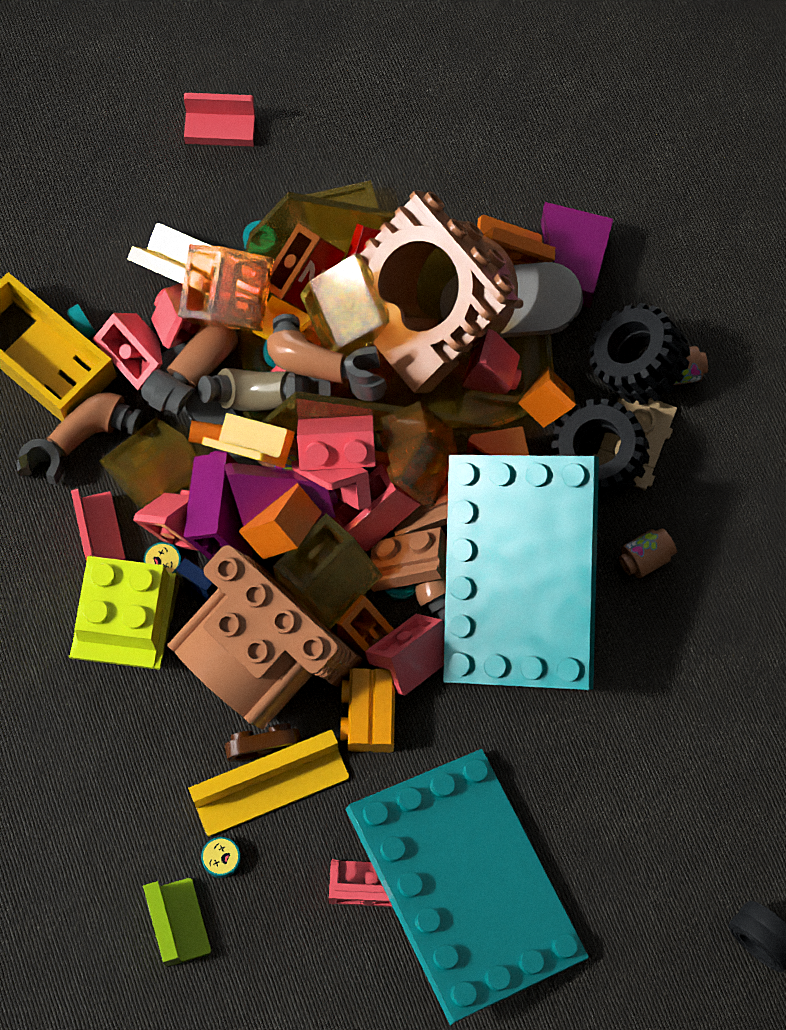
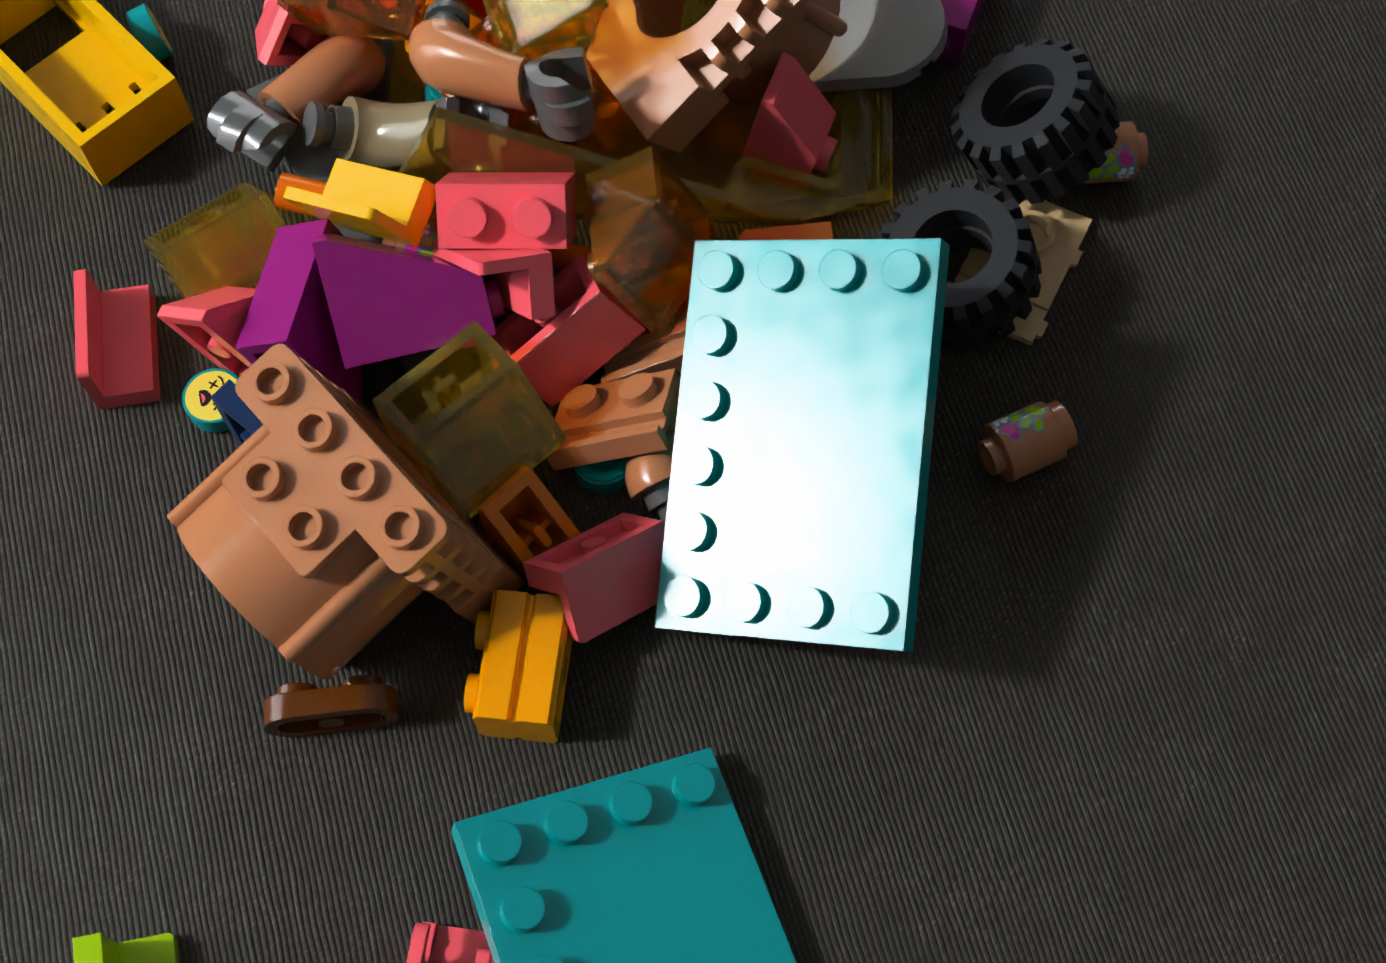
camera: 10 degrees right, 5 degrees down
(94, 415) = (133, 169): piece -> none
(124, 613) = (118, 462): neon yellow piece -> none
(130, 346) = (208, 58): coral slope -> none
(221, 857) = (229, 901): light yellow tile -> none
(269, 783) = (331, 776): yellow panel -> none
(282, 523) = (399, 333): orange slope -> none
(548, 398) = (874, 185): orange slope -> none

